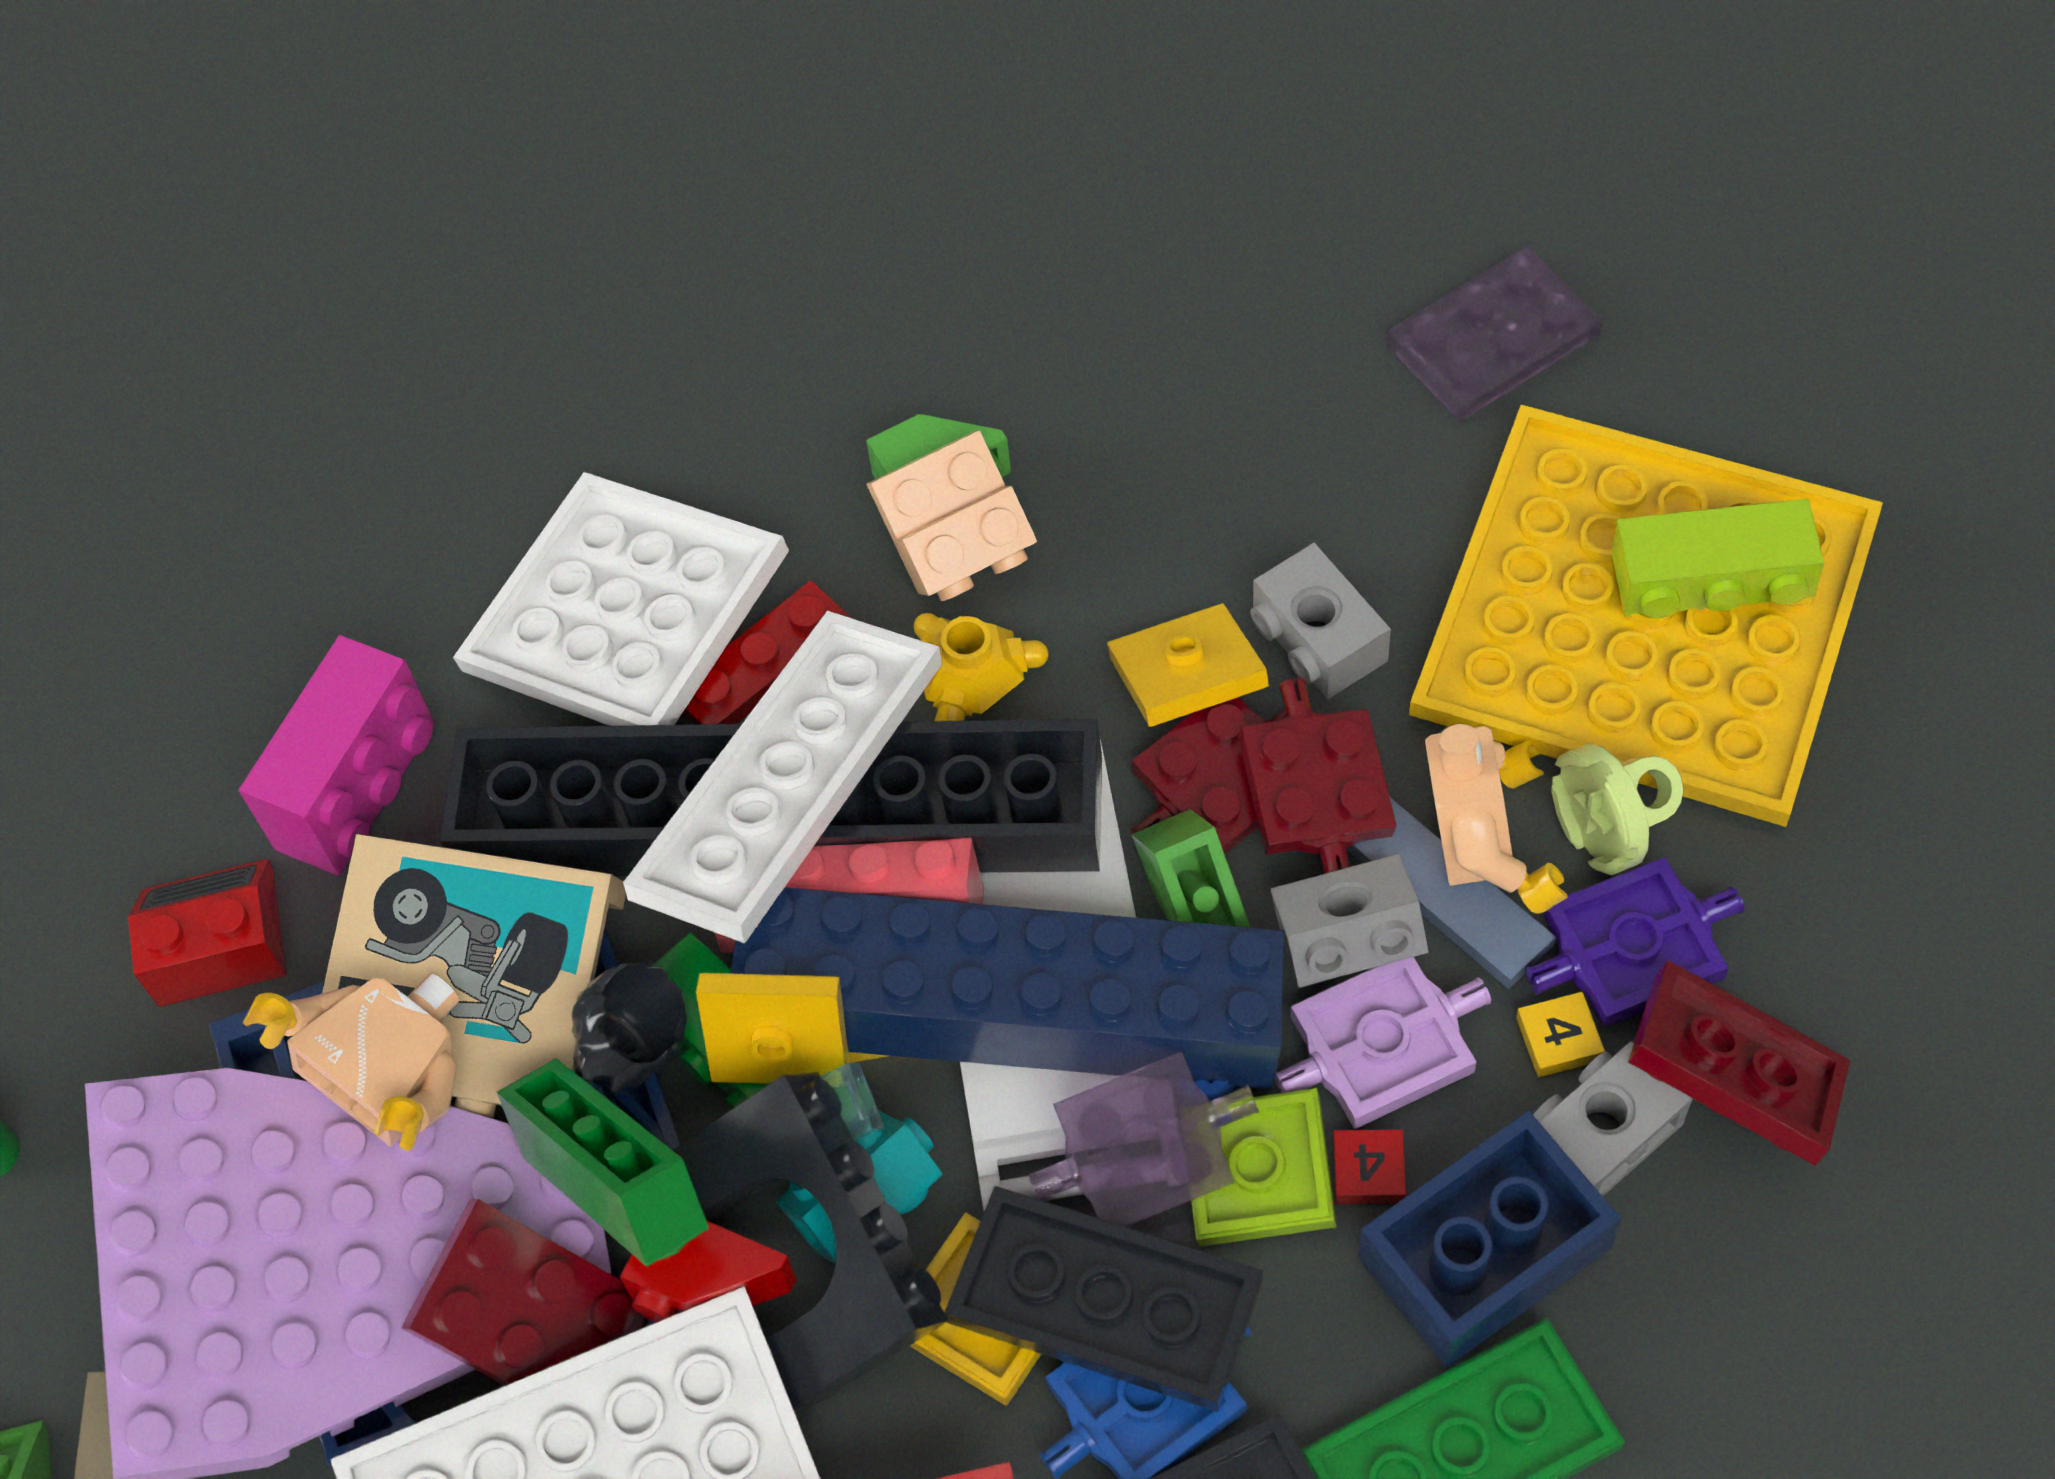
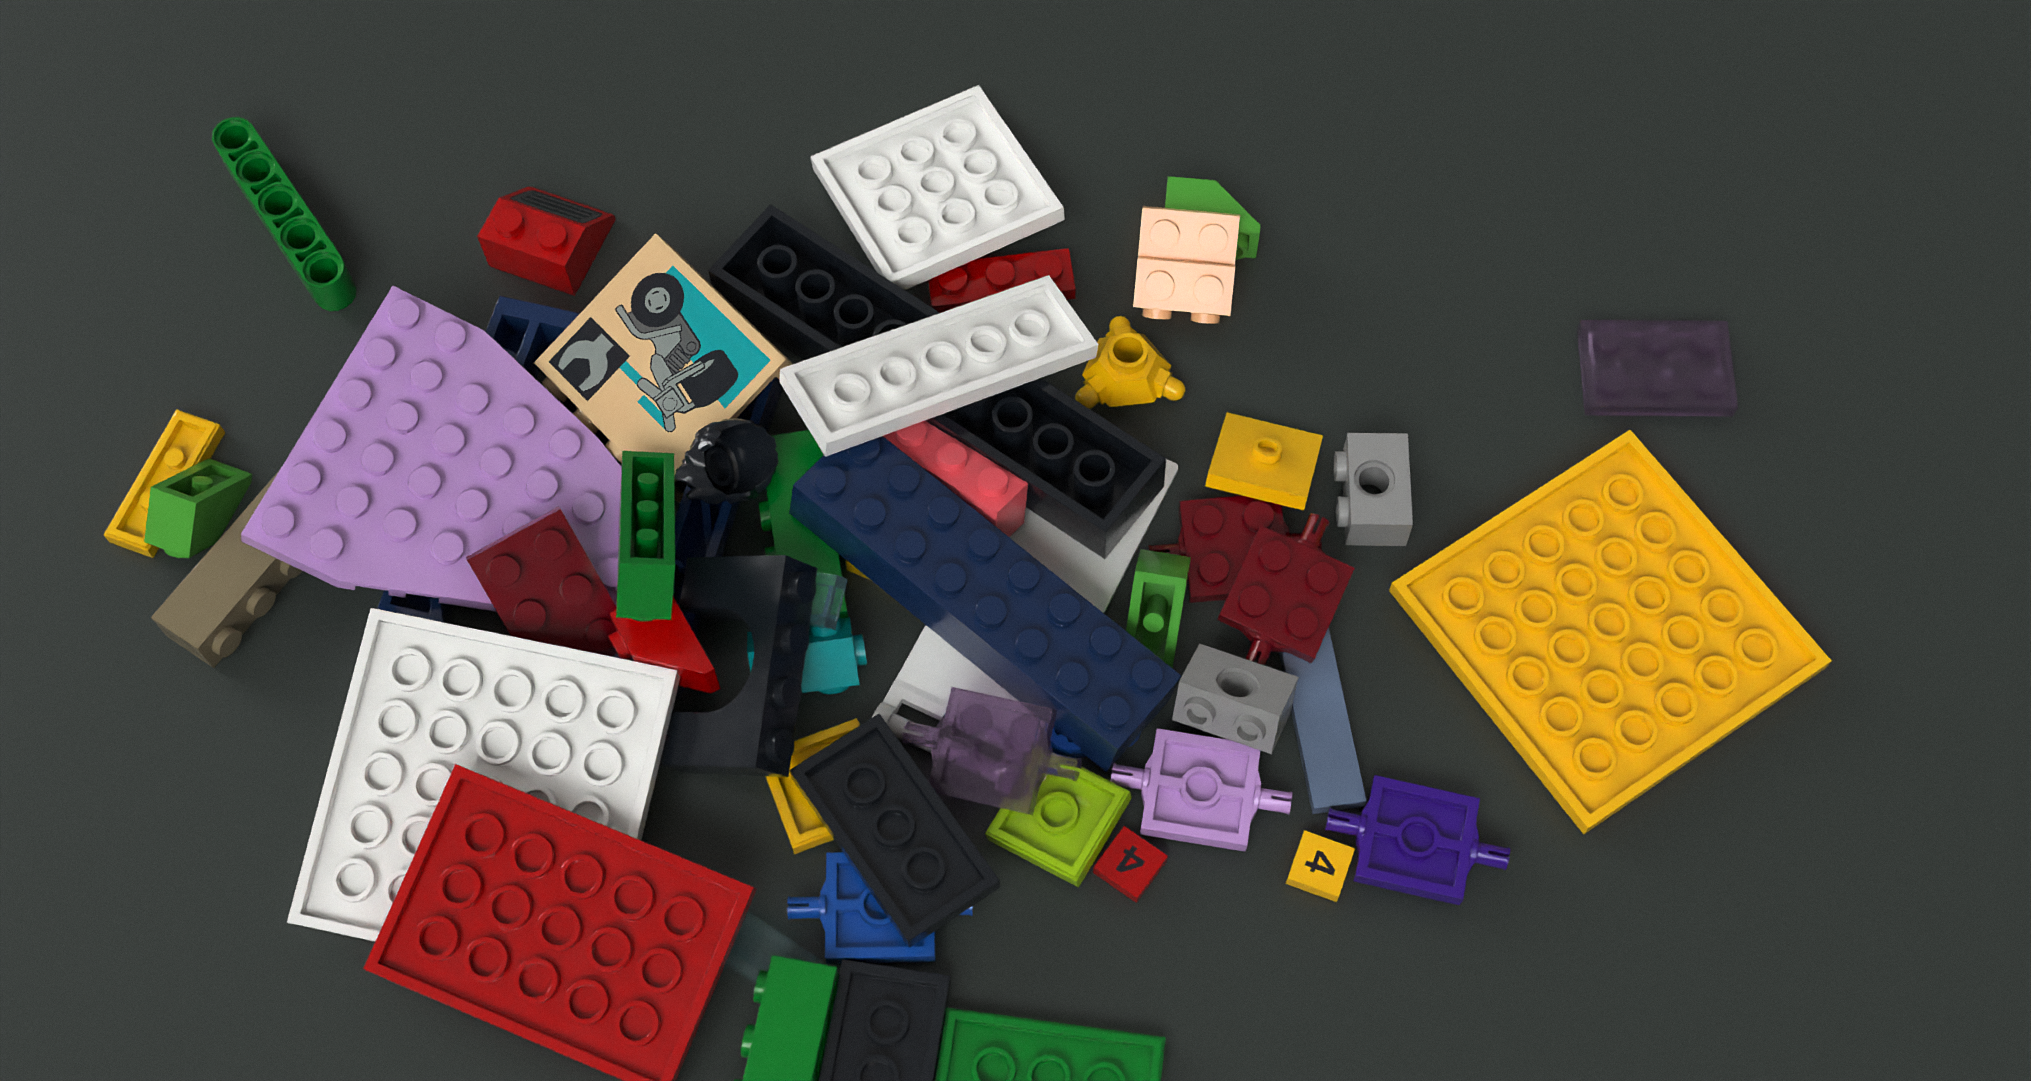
camera: 30 degrees right, 5 degrees up
(338, 755) = (693, 174): dark pink brick -> none
(371, 1051) = (568, 375): light nougat torso -> none
(771, 1025) = (810, 520): yellow plate -> none
(1473, 817) = (1368, 681): light nougat torso -> none
(1488, 1238) = (1163, 961): dark blue brick -> none
(1603, 809) = (1463, 737): yellowish green tile -> none
(1642, 1106) = (1276, 963): light grey brick -> none
(1717, 558) = (1675, 623): lime brick -> none
(1741, 1062) = (1416, 965): dark red plate -> none

